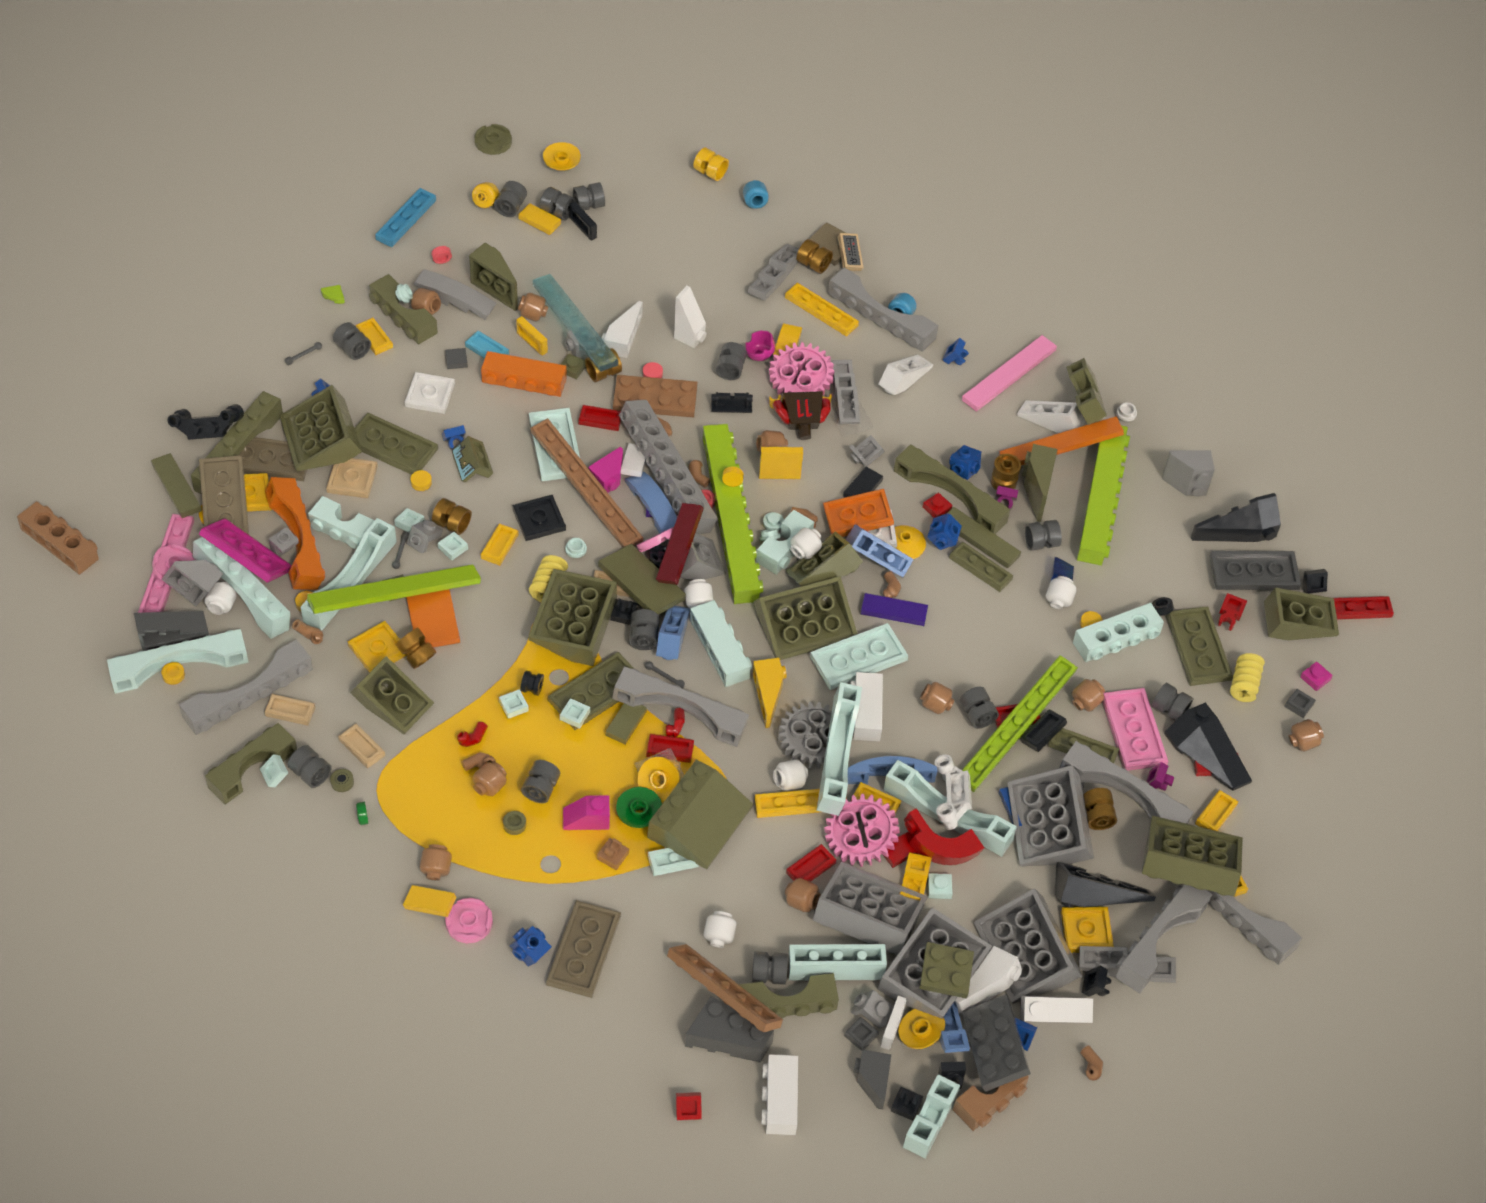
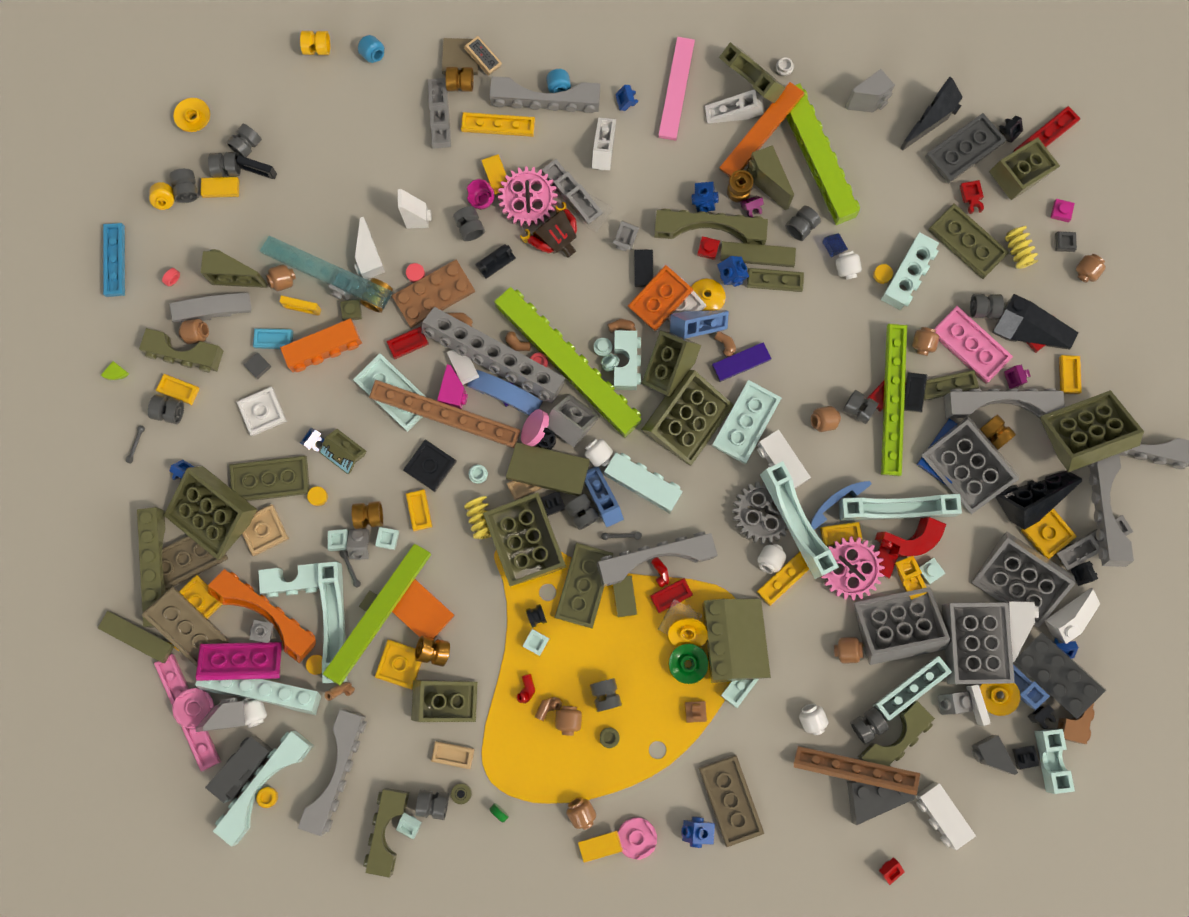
camera: 30 degrees left, 25 degrees up
(58, 537) = (52, 748): medium nougat brick -> none
(205, 426) = (114, 572): black plate -> none
(290, 709) = (377, 764): tan tile -> none
(404, 293) = (173, 338): light aqua plate -> none
(493, 139) = (122, 133): olive tile -> none
(575, 713) = (588, 621): light aqua plate -> none
(587, 814) = (656, 696): dark pink slope -> none
(679, 543) = (559, 424): dark red tile -> none
(733, 476) = (552, 335): yellow tile -> none
(768, 680) = (702, 492): yellow slope -> none
(771, 439) = (553, 279): medium nougat head -> none
(780, 462) = (575, 294): yellow tile -> none
(806, 543) = (648, 357): white head -> none
(812, 864) = (835, 619): red tile -> none
(861, 1033) = (960, 726): dark grey tile -> none
(946, 970) = (994, 647): olive plate -> none
(958, 792) = (897, 490): white plate -> none
(1094, 1065) = (1123, 636): medium nougat arm -> none
(1163, 605) = (924, 225): black tile -> none

